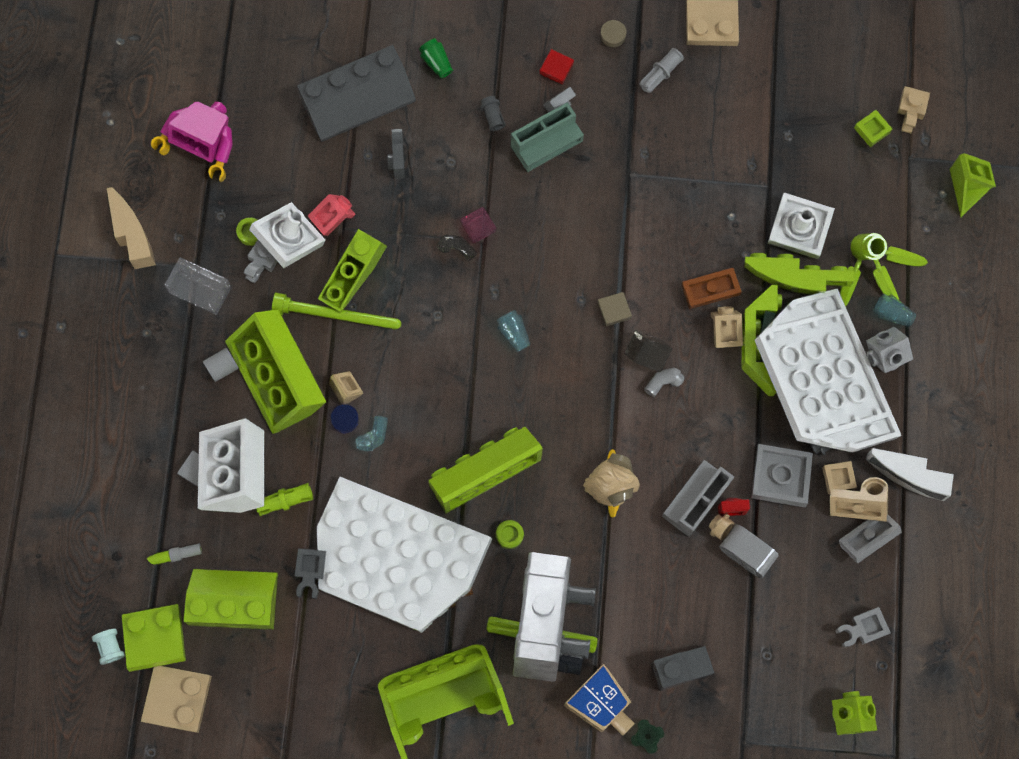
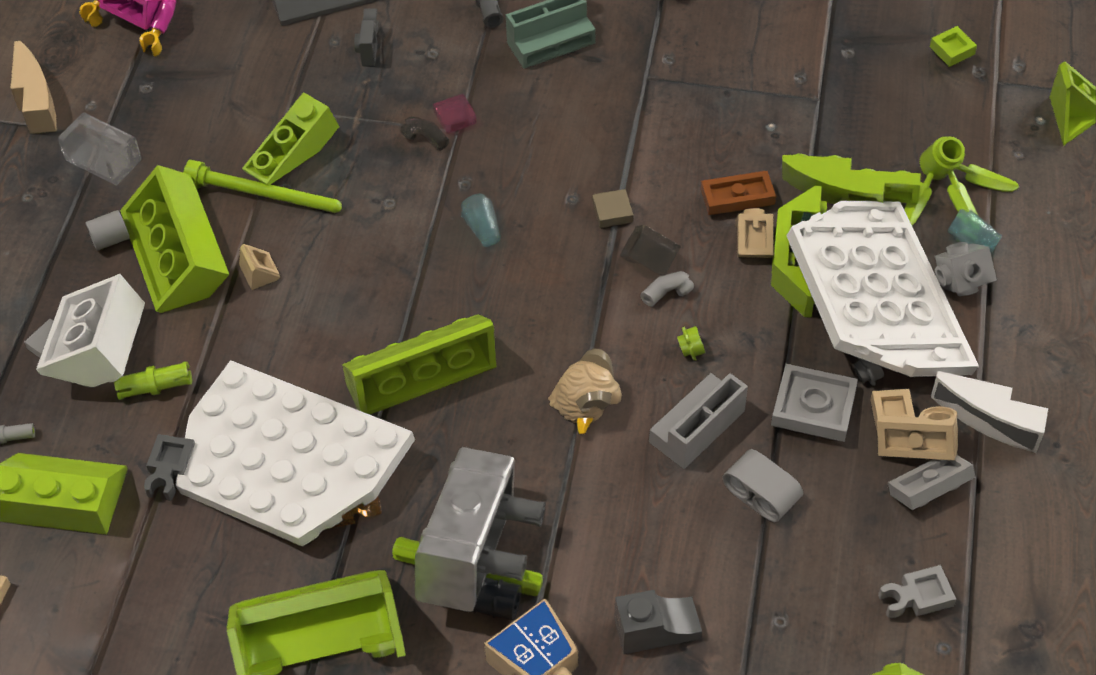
camera: 10 degrees right, 20 degrees down
(244, 233) = (176, 103): lime tile -> none
(261, 260) = (187, 126): light grey plate -> none
(287, 234) = (219, 100): white plate -> none
(331, 213) = (276, 87): coral bracket -> none
(344, 418) = (250, 300): clear blue tile -> none
(375, 437) = (283, 322): clear light blue arm -> none
(509, 534) = (441, 445): lime tile -> none
(686, 431) = (691, 342): none -> lime plate
(721, 526) = (726, 453): tan plate -> none
(734, 507) = (746, 432): red tile -> none
(801, 226) = (857, 134): white plate -> none
(913, 106) = (1003, 29): tan plate -> none

